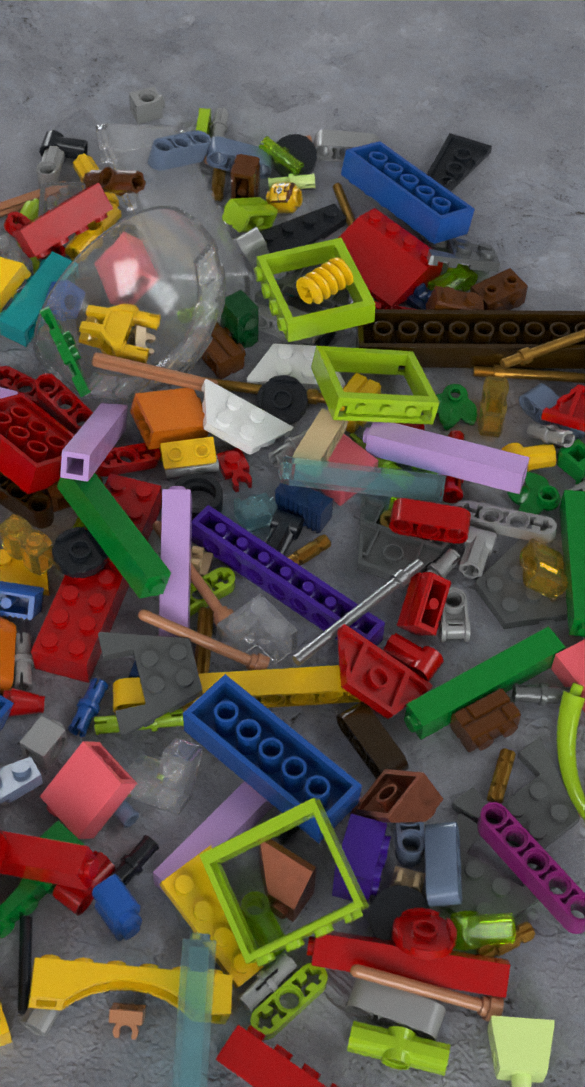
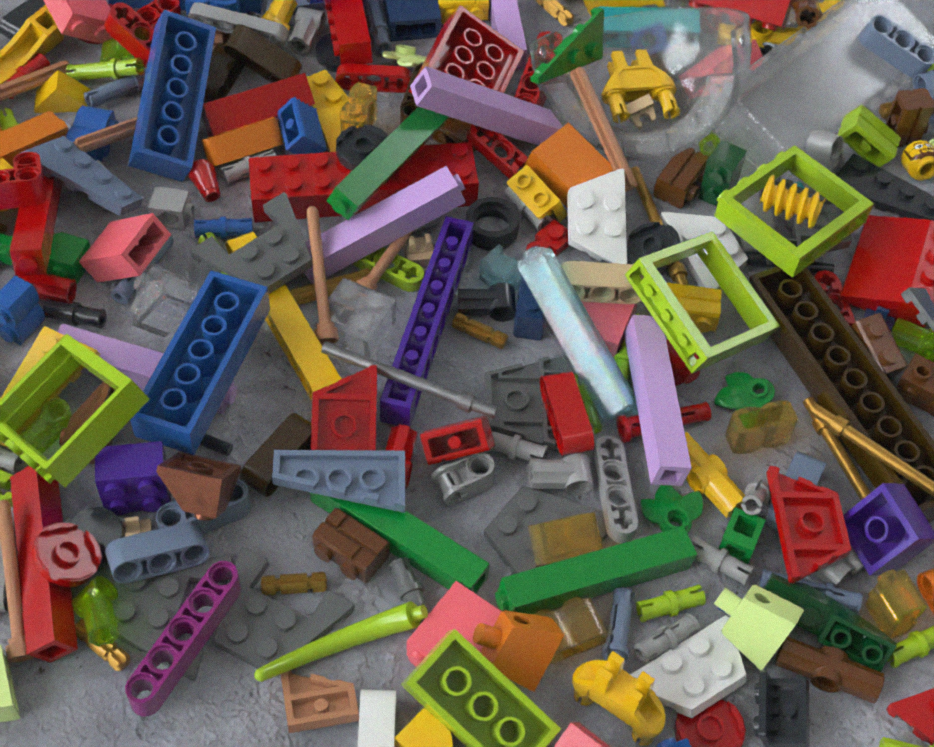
camera: 65 degrees right, 0 degrees up
(433, 690) = (349, 475): none -> sand blue wing

